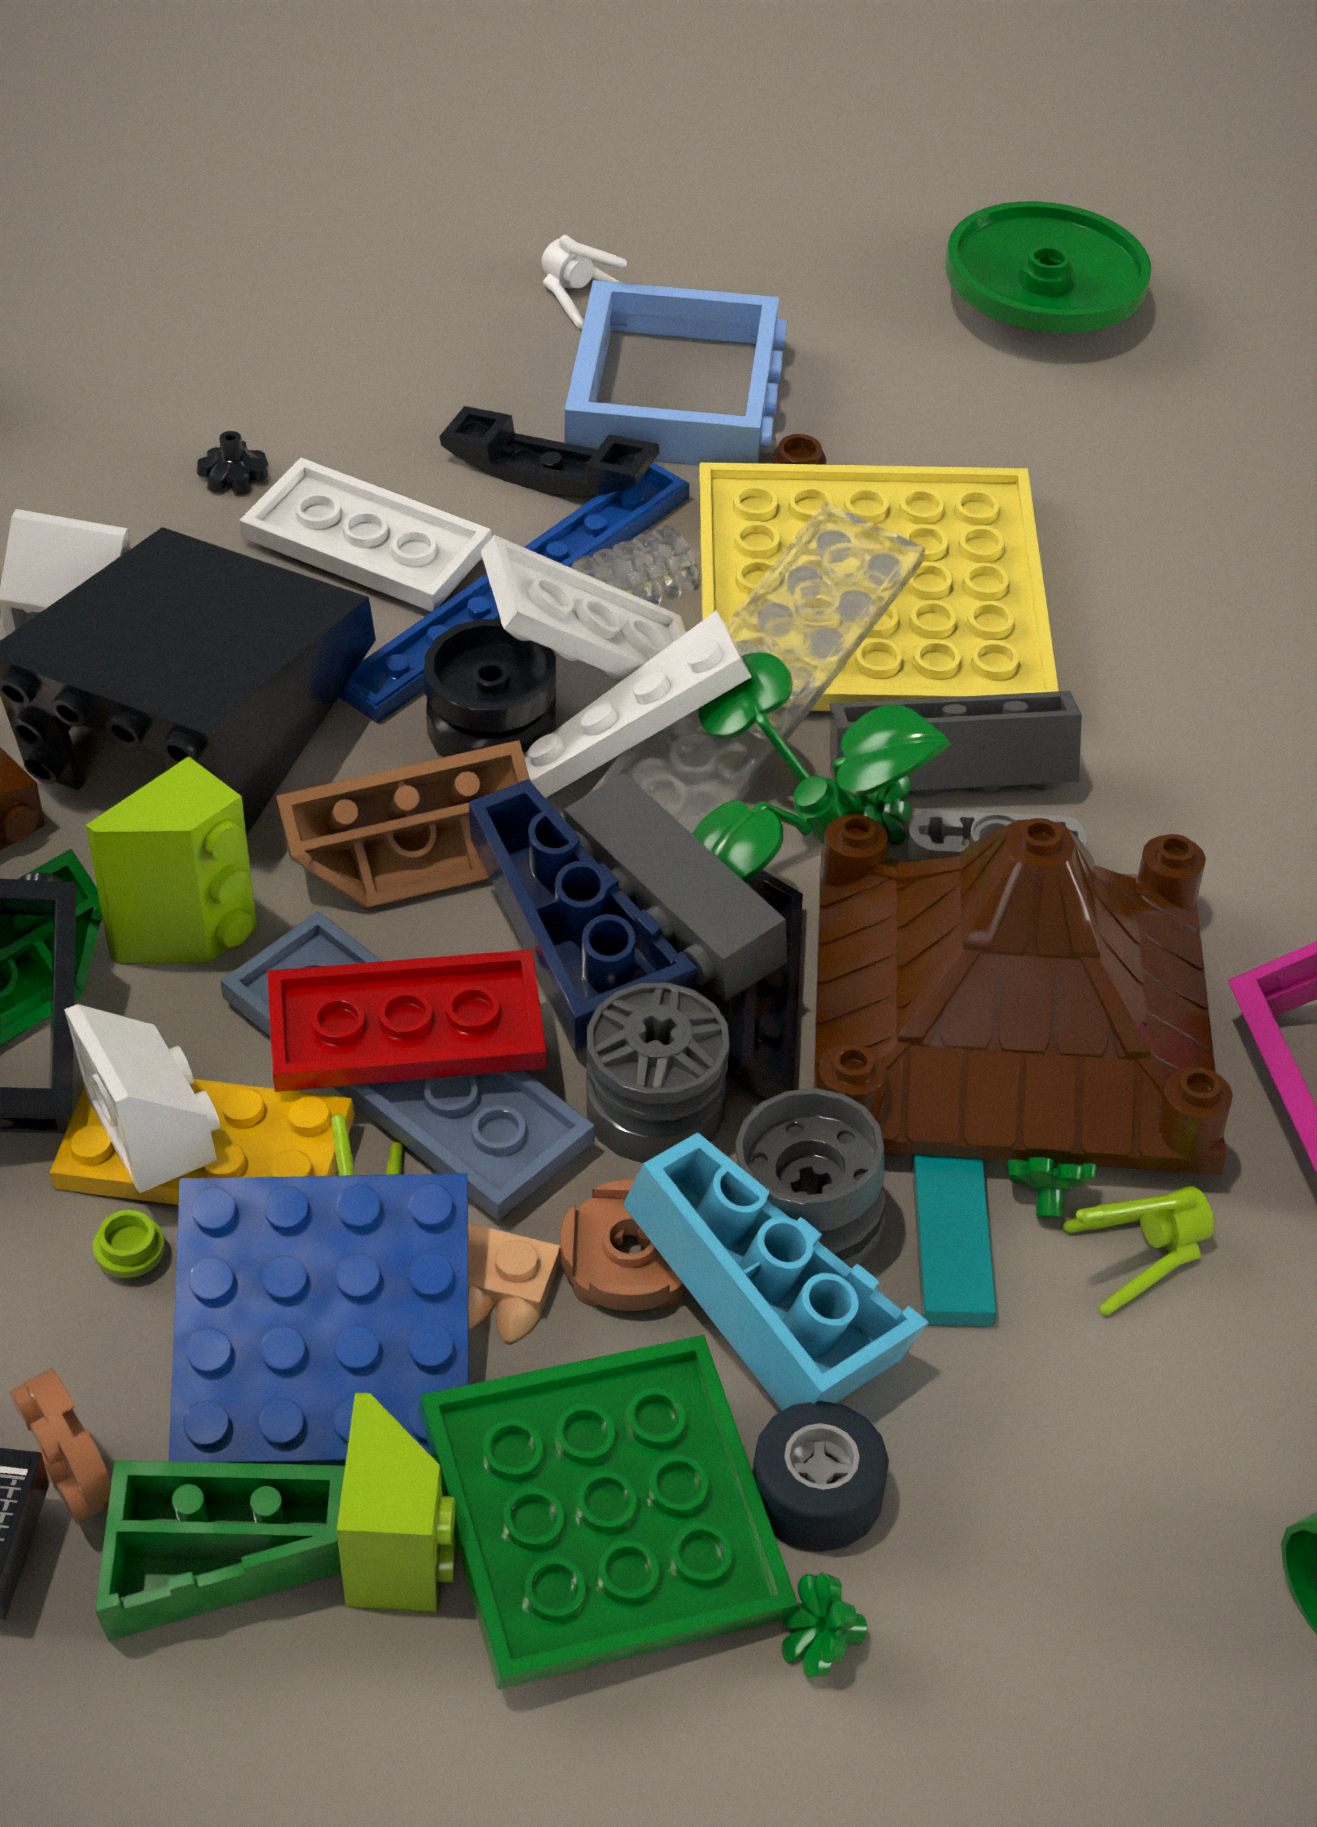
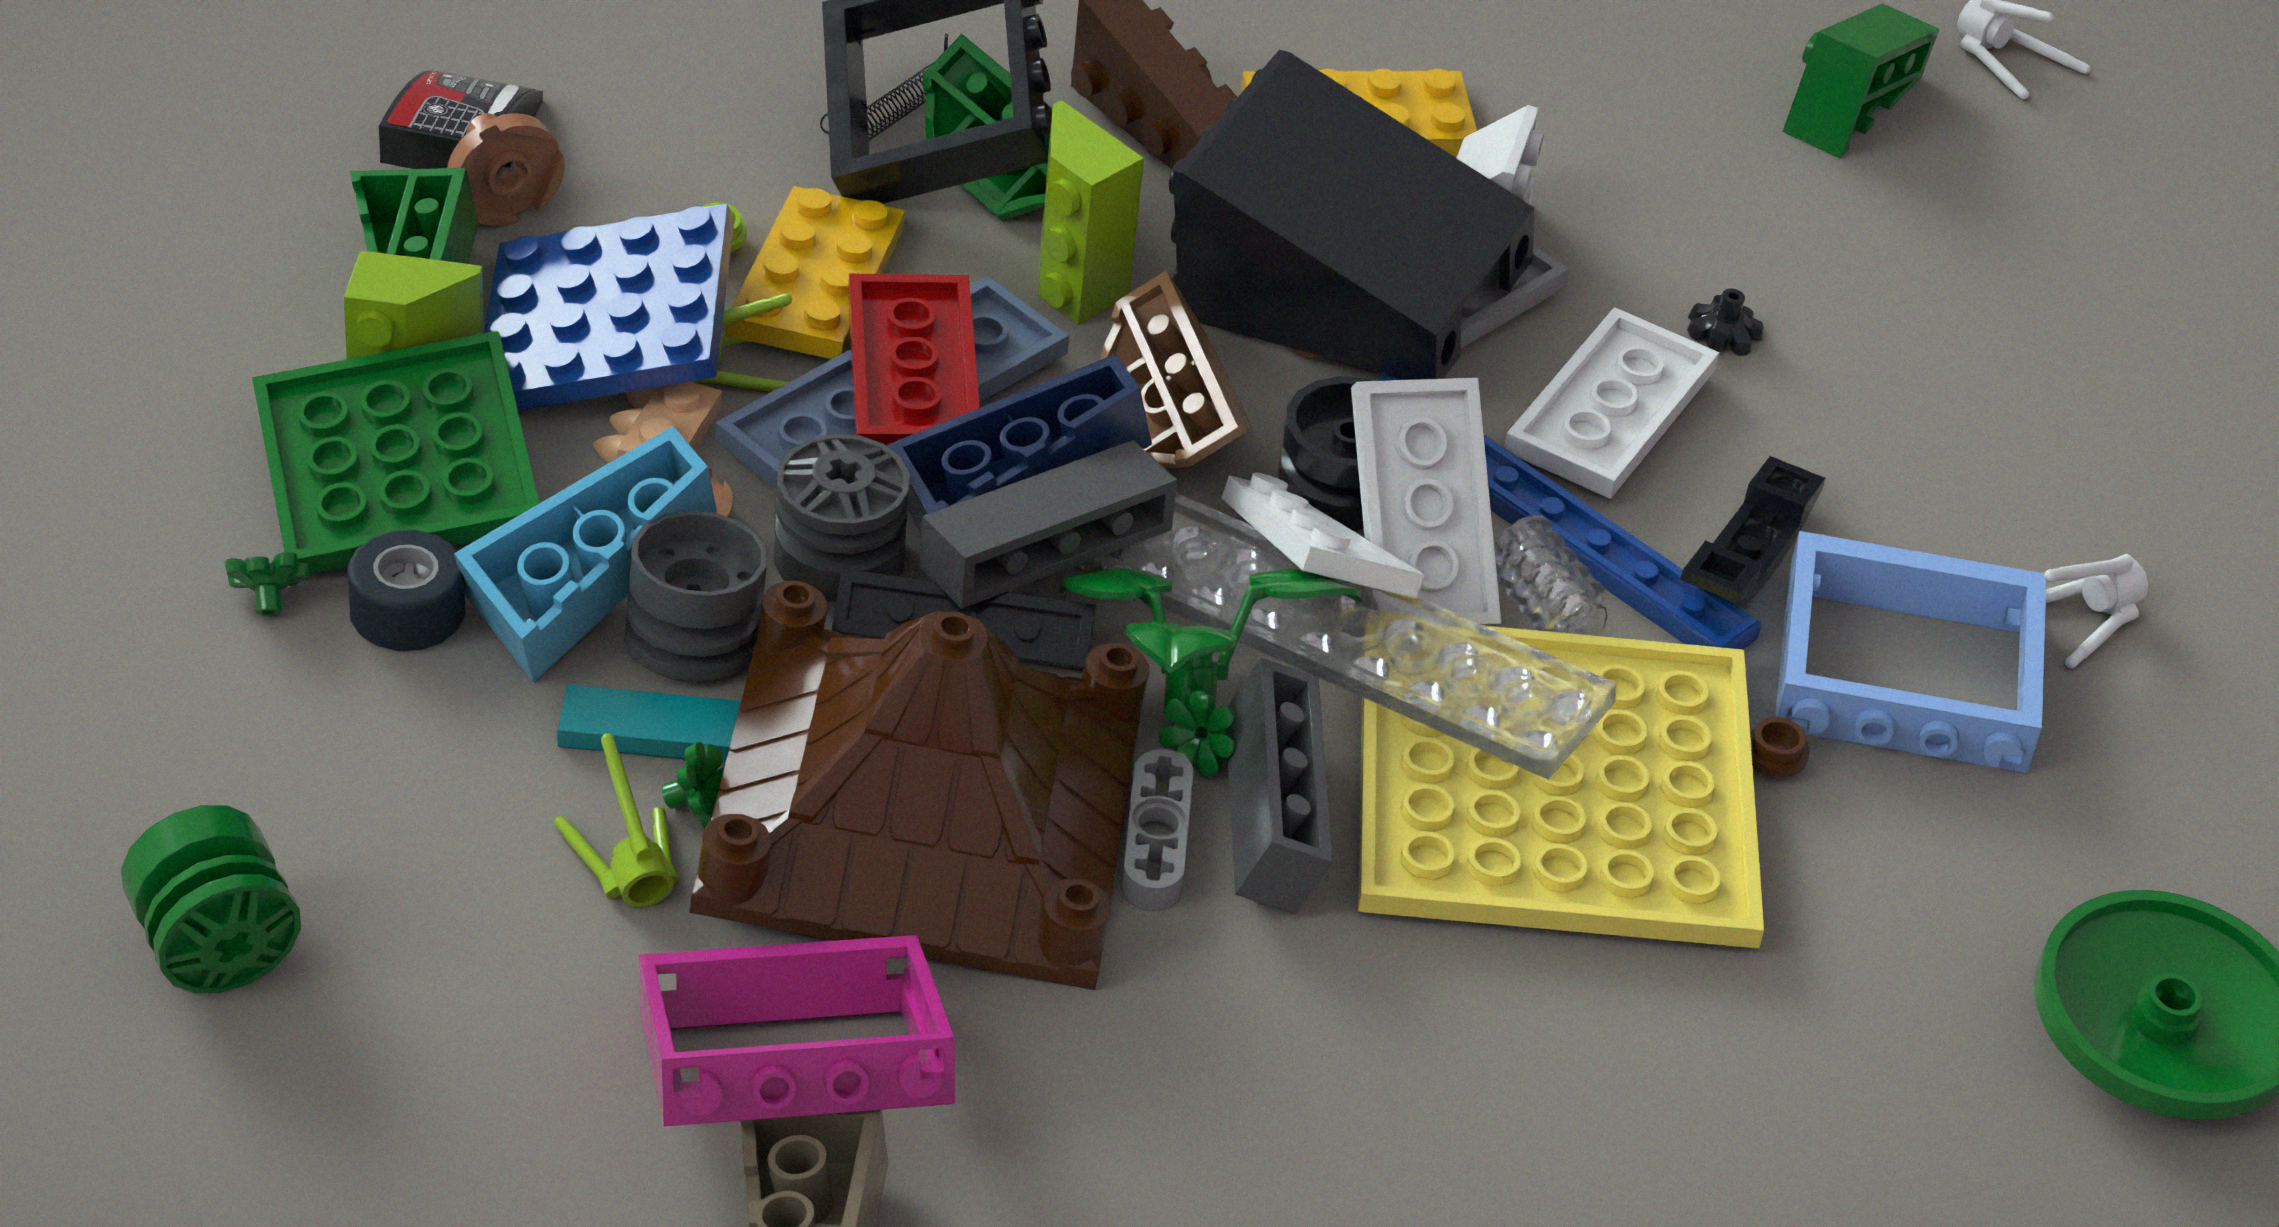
camera: 90 degrees right, 5 degrees down
(143, 1096) = (822, 182): white slope -> none

